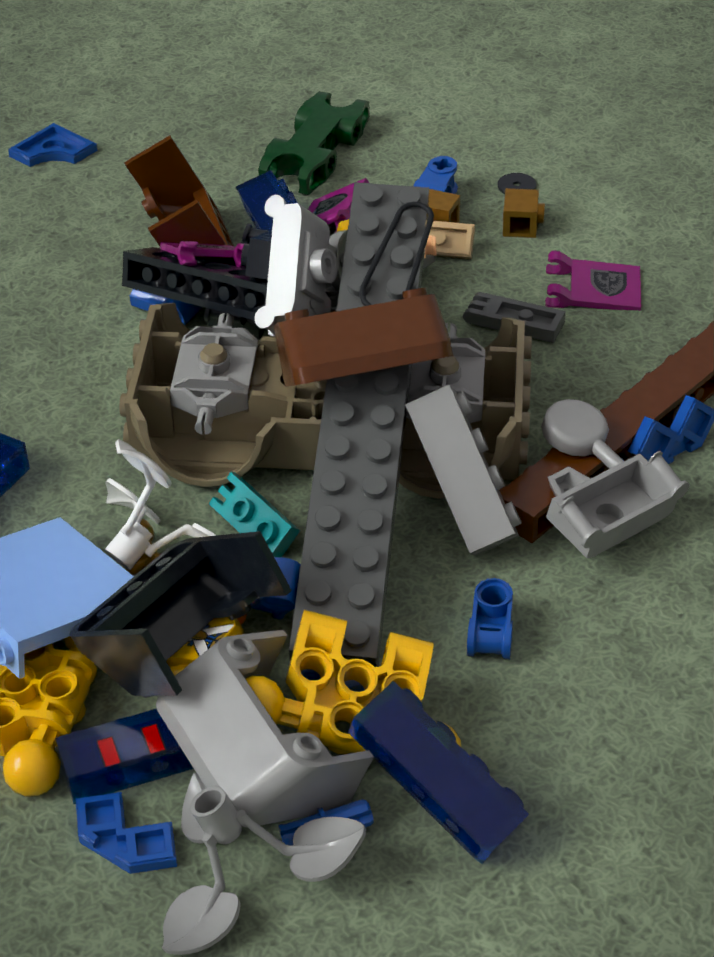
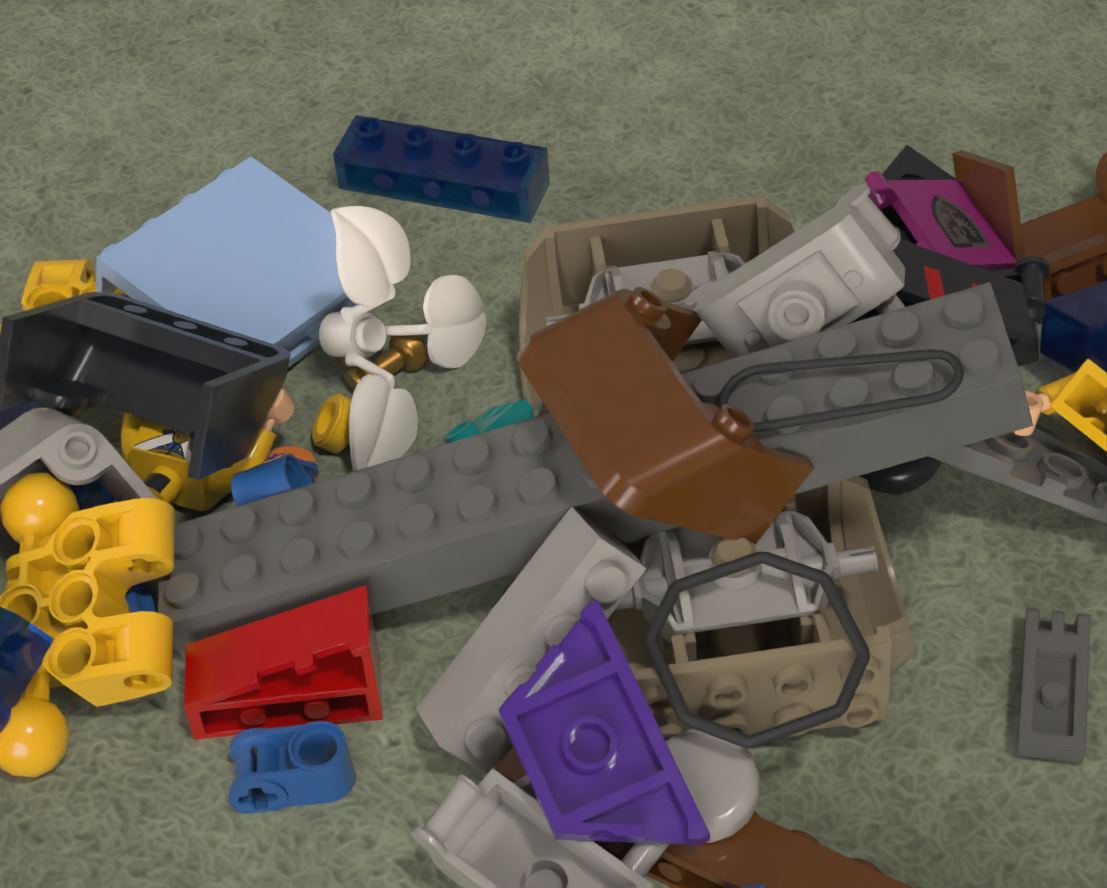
camera: 80 degrees right, 5 degrees up
(425, 592) = (287, 670): none -> red wedge
(516, 403) = (788, 728): none -> black piece
(556, 441) = (597, 746): none -> dark purple wing

